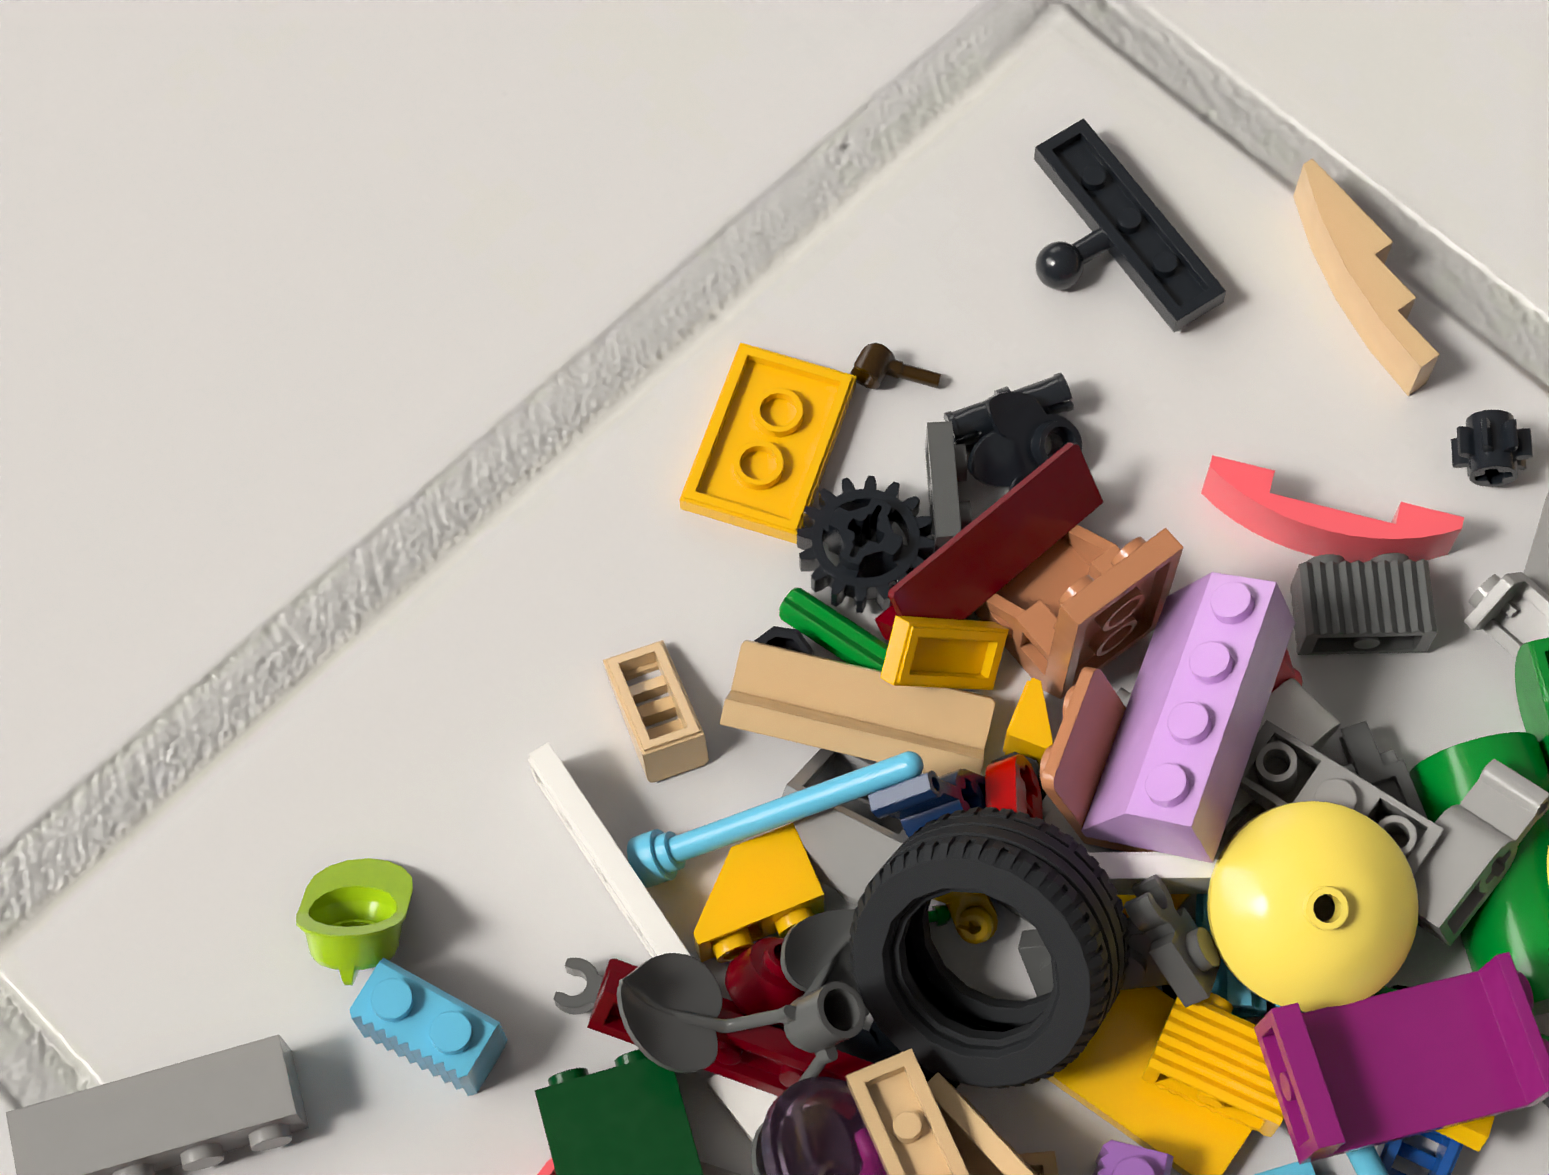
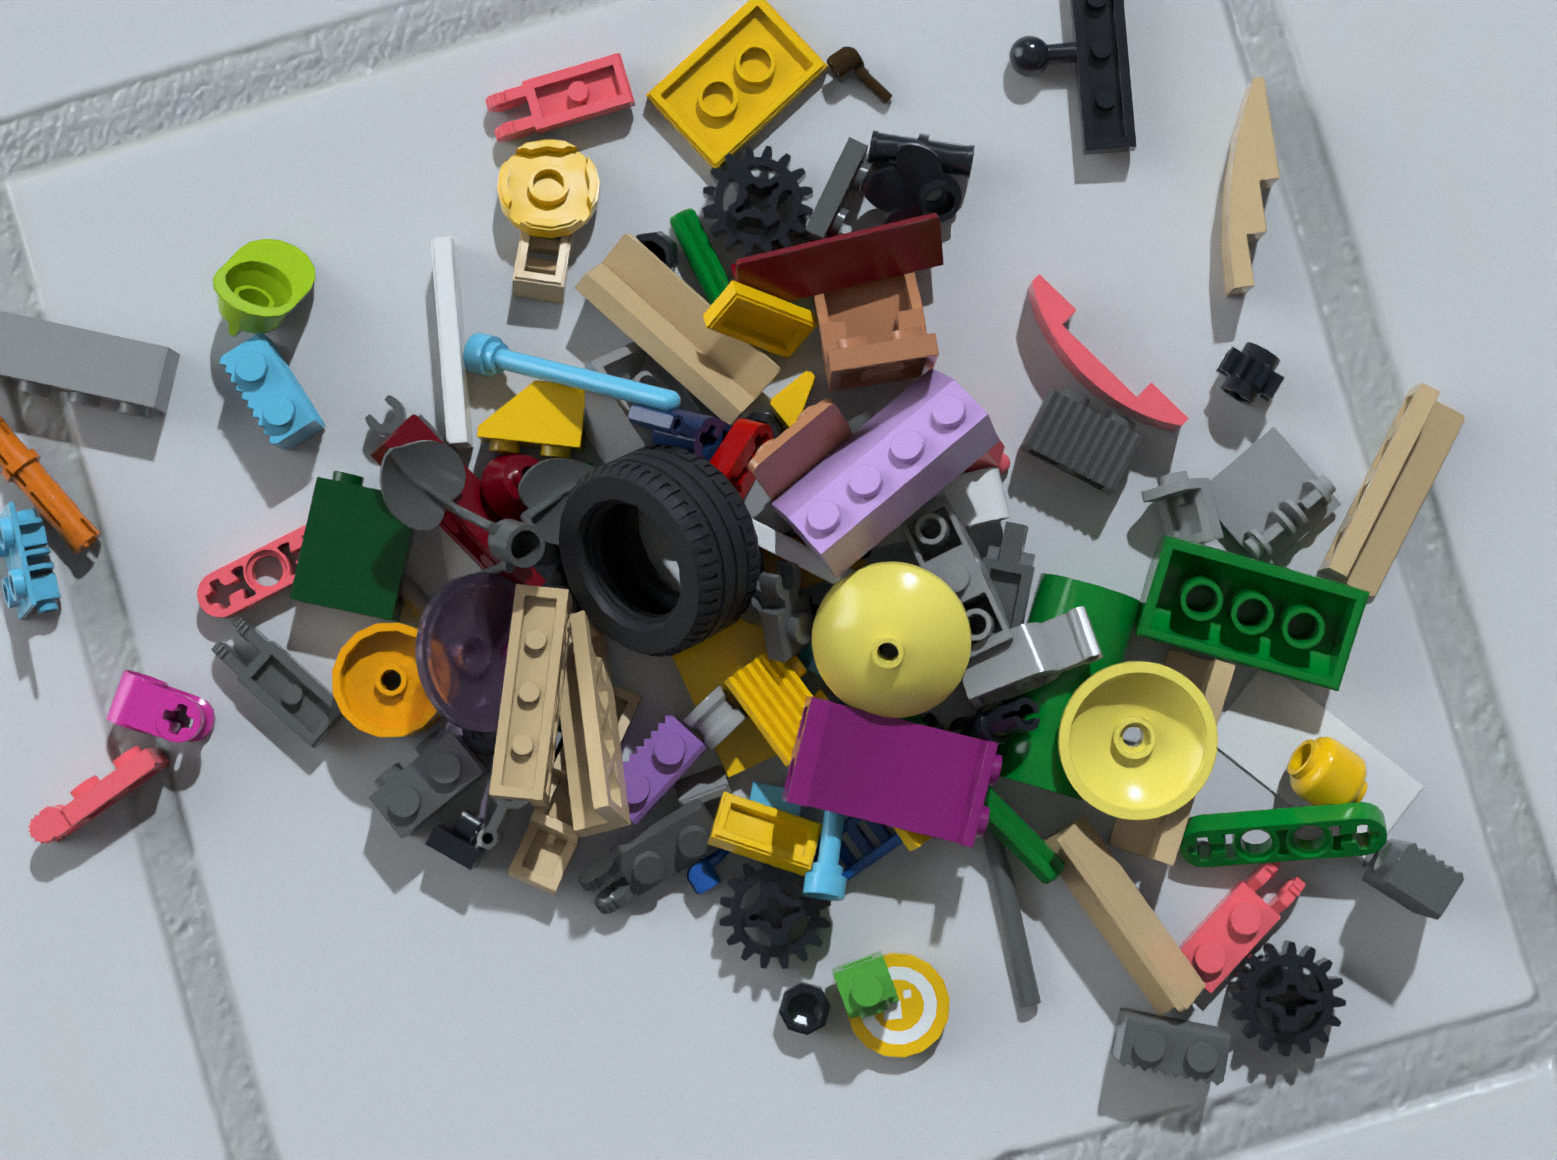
camera: 30 degrees right, 20 degrees up
(591, 546) = (564, 97): none -> coral hinge
(627, 646) = (548, 188): none -> yellow tile
(1161, 1119) = (715, 718): none -> light grey wheel
(1485, 938) = (998, 721): none -> black pin

